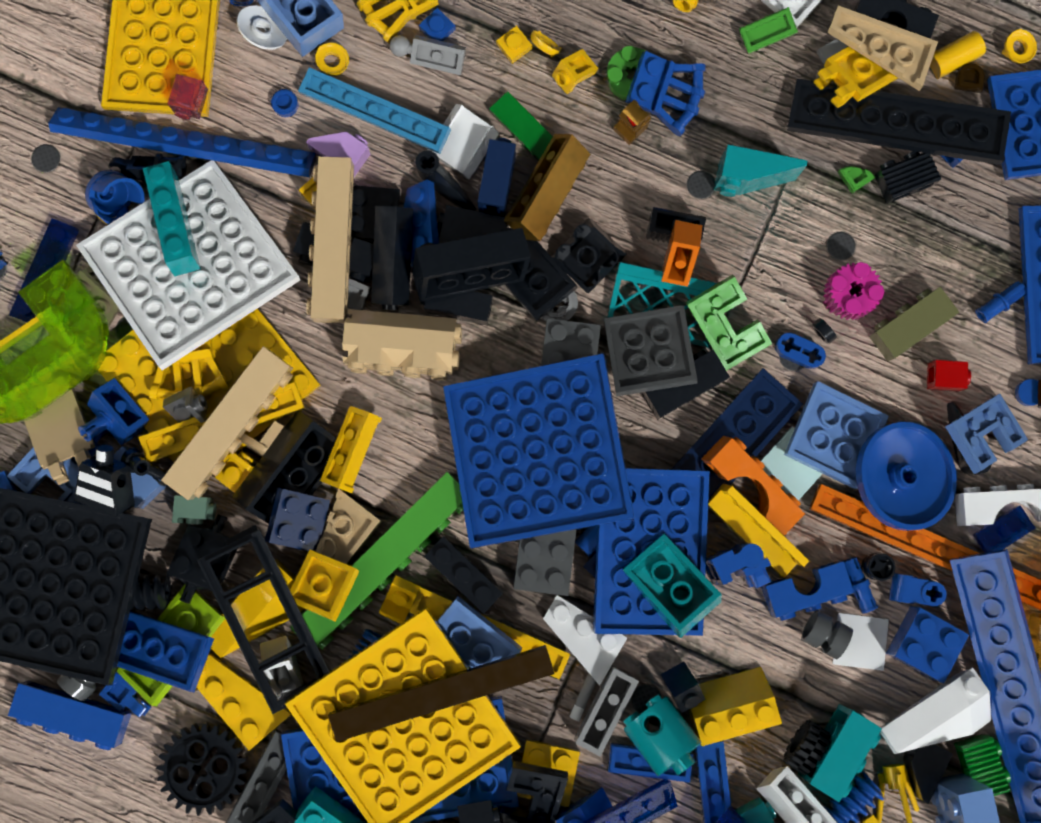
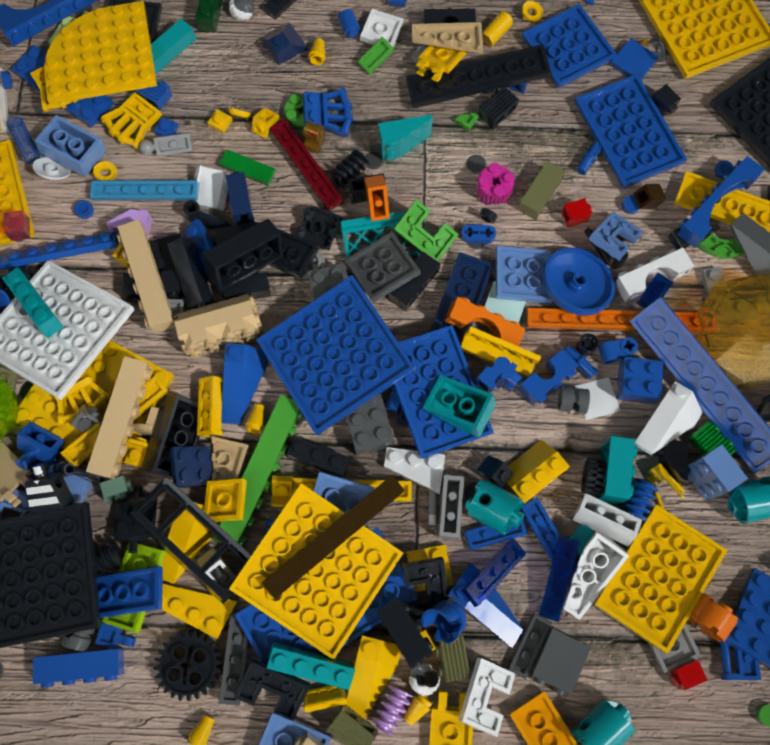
camera: 20 degrees left, 10 degrees down
(402, 490) = (255, 422): none -> yellow cone
(406, 423) = (241, 376): none -> blue wedge
(548, 186) = (275, 191): pearl gold brick -> none
(607, 157) = (306, 165): none -> dark red plate
(662, 186) = (348, 167): none -> black piece
(970, 78) = (510, 39): dark brown tile -> none

